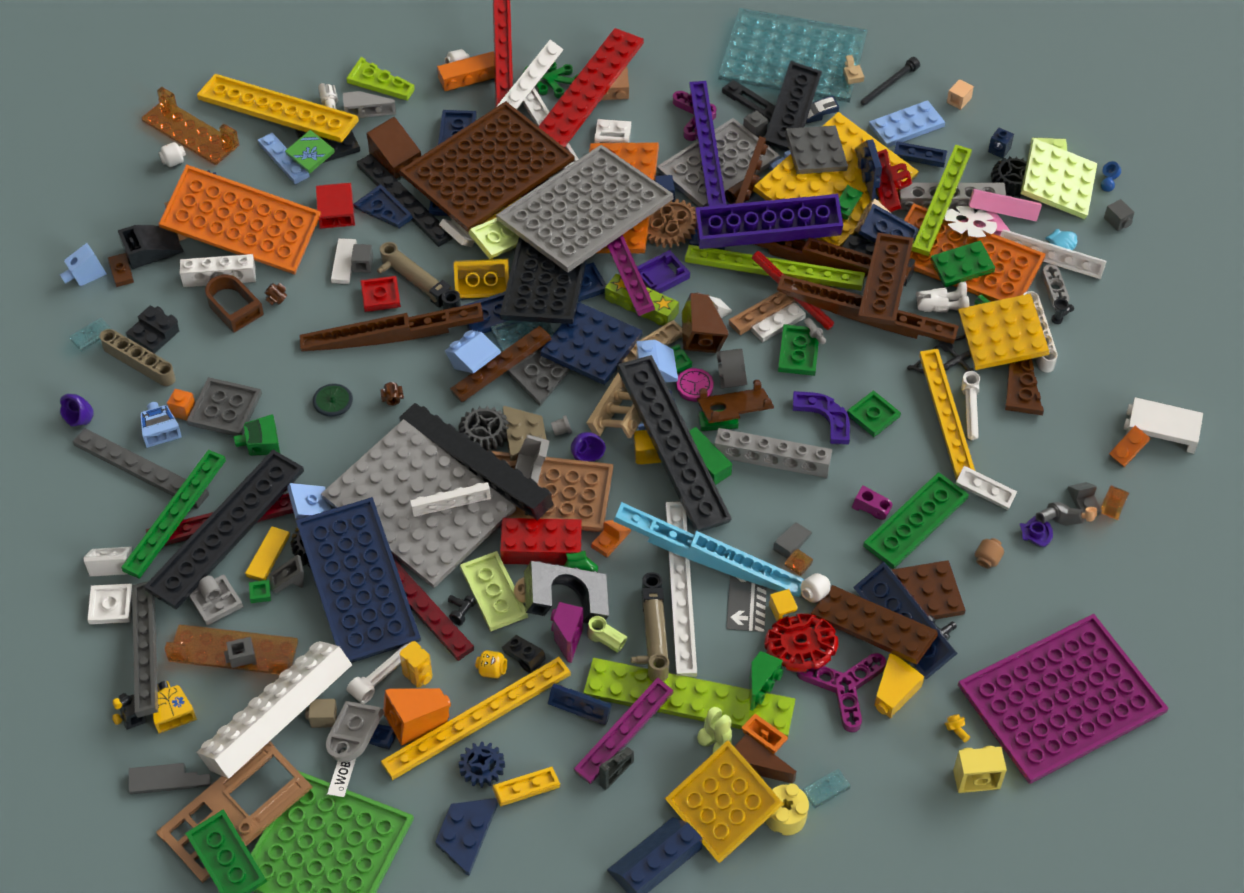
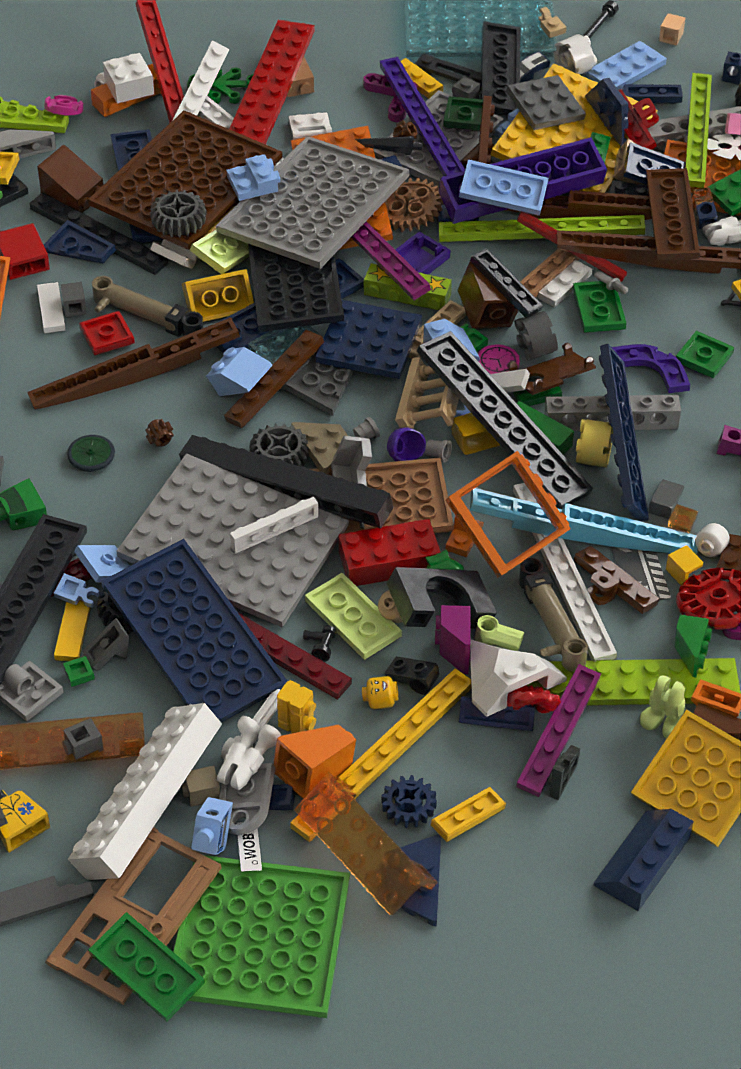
camera: 15 degrees left, 5 degrees down
(277, 520) = (74, 589): none -> light blue plate
(314, 752) = (212, 831): none -> light blue torso
(357, 700) = (243, 761): none -> white piece
(413, 75) = (63, 105): none -> dark pink tile
(428, 794) = (362, 844): none -> clear orange bracket
(466, 199) = (178, 213): none -> dark grey gear
(469, 62) = (128, 78): none -> white brick
(540, 177) = (254, 178): none -> light blue plate
(594, 669) = (501, 670): none -> white wedge
(616, 456) = (439, 449): none -> light grey piece
(618, 704) = (532, 695): none -> red piece
(676, 526) = (477, 535): none -> orange window
(678, 166) = (393, 144): none -> black bar
(686, 155) = (405, 129): none -> reddish brown gear
(694, 406) = (512, 380): none -> white tile
(716, 318) = (506, 283): none -> black tile
(718, 605) = (612, 580): none -> reddish brown plate
(723, 104) = (425, 83): none -> yellow plate
(742, 144) = (463, 113): none -> dark green plate
(745, 227) = (503, 187): none -> light blue plate
(746, 478) = (594, 443): none -> light yellow brick
(769, 477) = (623, 434): none -> dark blue plate
(861, 106) = (575, 54): none -> white brick
(922, 274) = (704, 207): none -> dark blue leg

